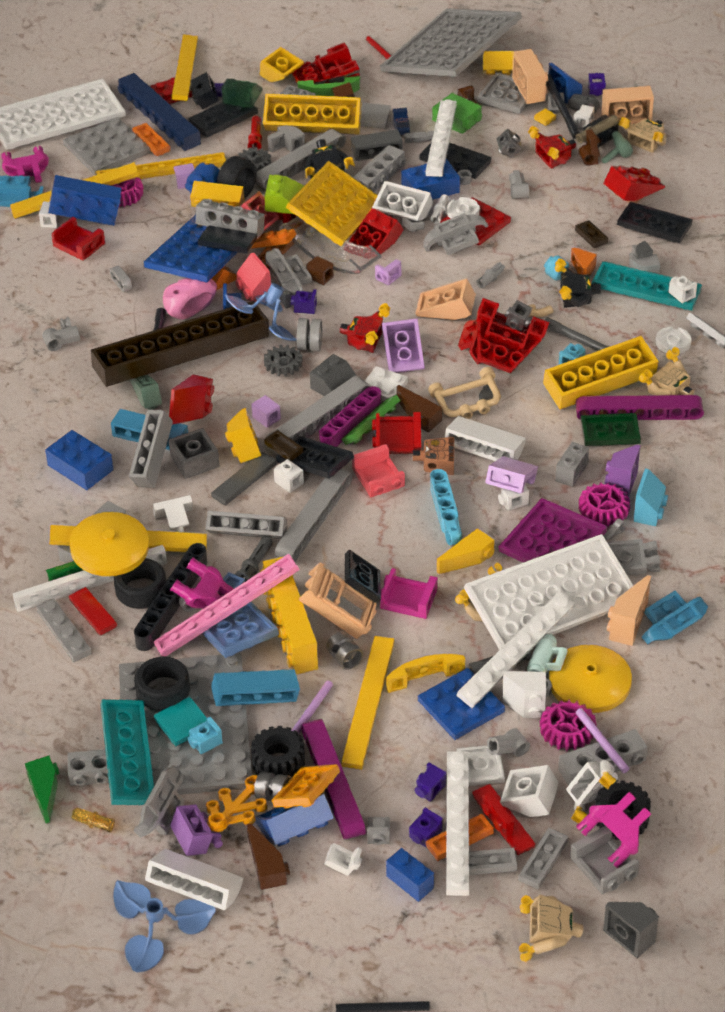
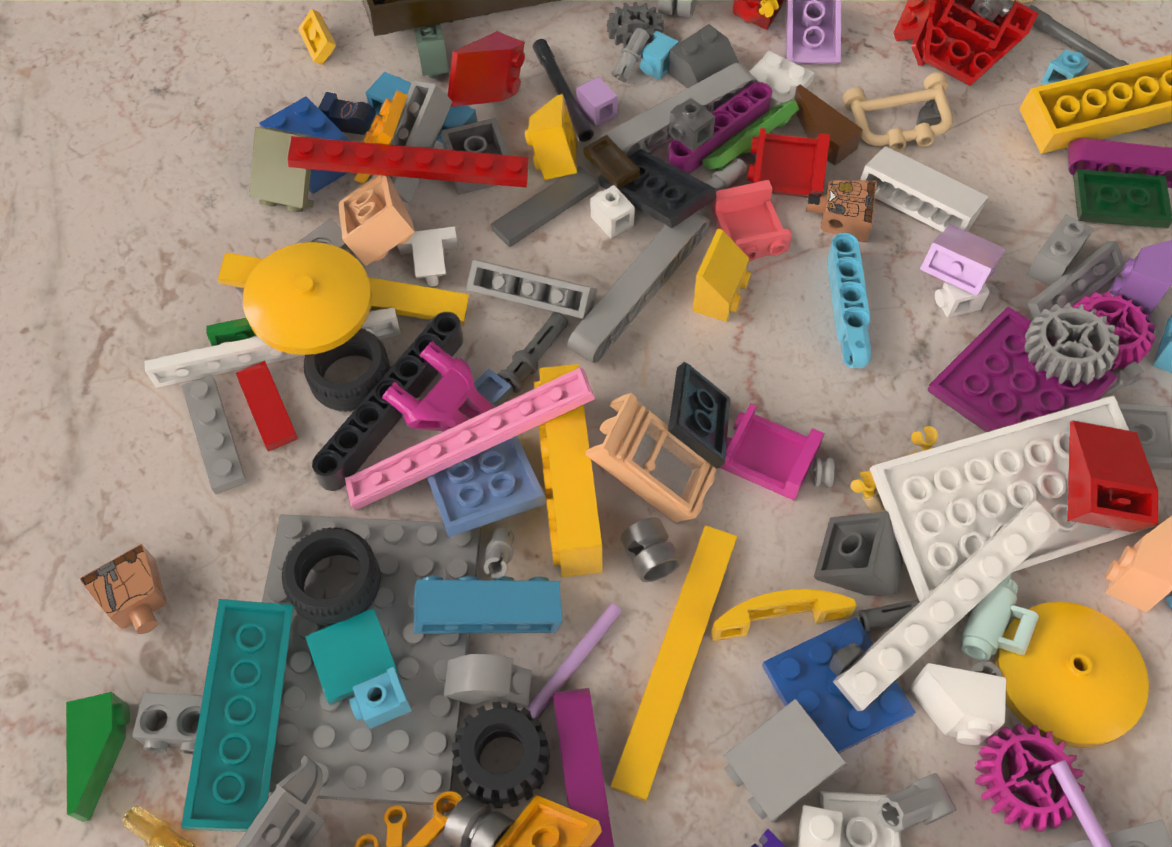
camera: 10 degrees right, 15 degrees up
(38, 712) = (128, 589): none -> nougat torso
(64, 392) = (317, 37): none -> yellow plate
(69, 474) = (272, 177): none -> panel
(105, 439) = (347, 115): none -> dark blue leg
(129, 449) = (385, 126): none -> light orange plate
(139, 495) = (374, 219): none -> light nougat slope
(154, 459) = (408, 161): none -> red plate
(227, 389) = (547, 60): none -> black piece
(257, 665) = (499, 552): none -> light grey pin
(259, 718) = (486, 678): none -> light grey brick
(283, 379) = (630, 54): none -> light grey axle
(301, 377) = (657, 55): none -> medium azure brick
(331, 416) = (691, 124): none -> flat silver brick
(360, 445) = (728, 175): none -> light grey pin
(364, 504) = (721, 278): none -> yellow slope
(432, 732) = (782, 761): none -> light grey panel
(440, 600) = (823, 472): none -> light grey bush
(459, 681) = (844, 658): none -> dark grey tile
(466, 553) = (878, 388): yellow slope -> none
(467, 636) = (860, 554): none -> dark grey slope
(576, 505) = (1071, 336): none -> light grey gear
(593, 473) = (1081, 280): none -> light grey plate
(599, 576) = (1110, 479): none -> red slope

